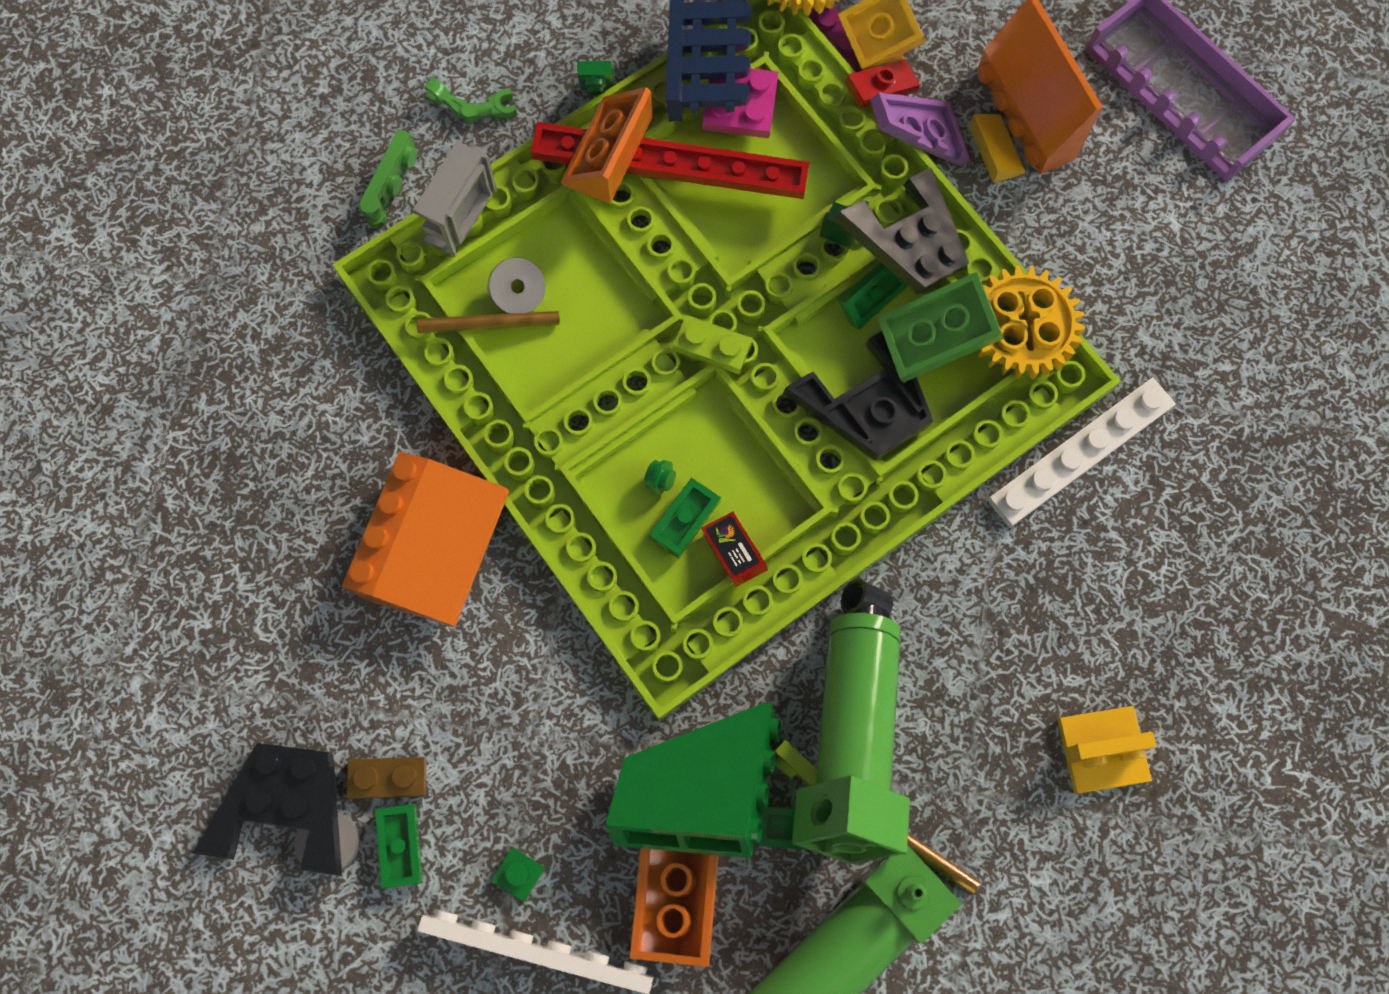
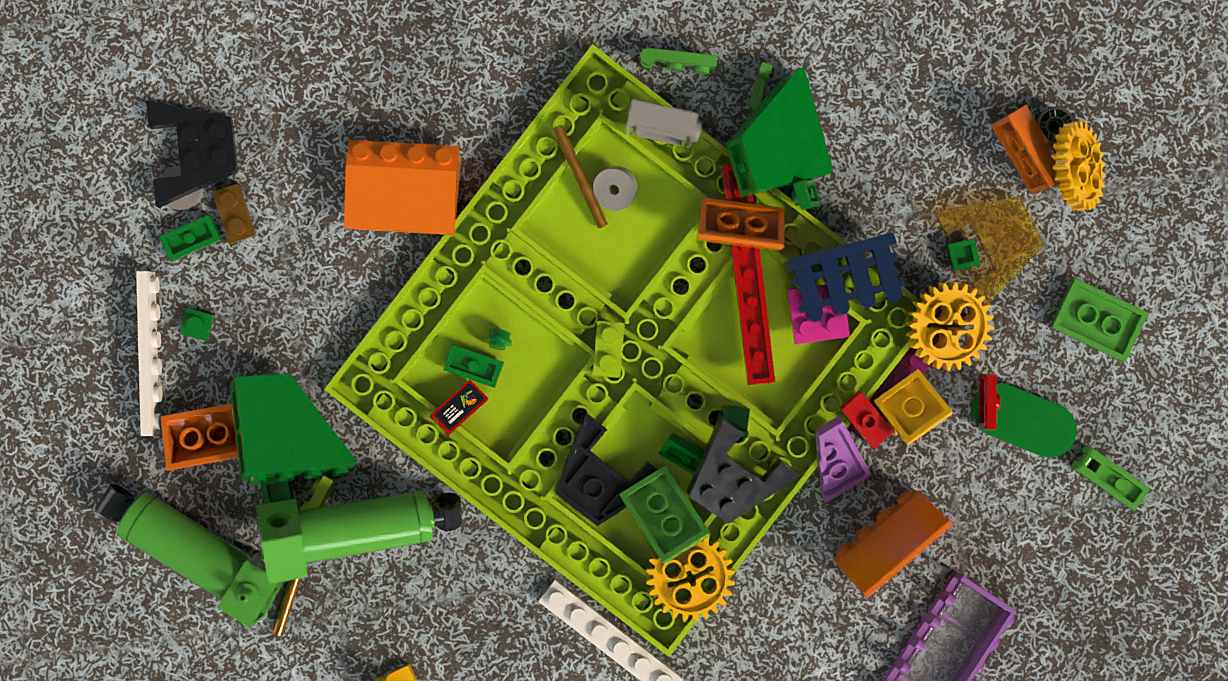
camera: 75 degrees right, 15 degrees up
(520, 85) = (780, 140): none -> green slope
(996, 147) = (844, 520): yellow slope -> none

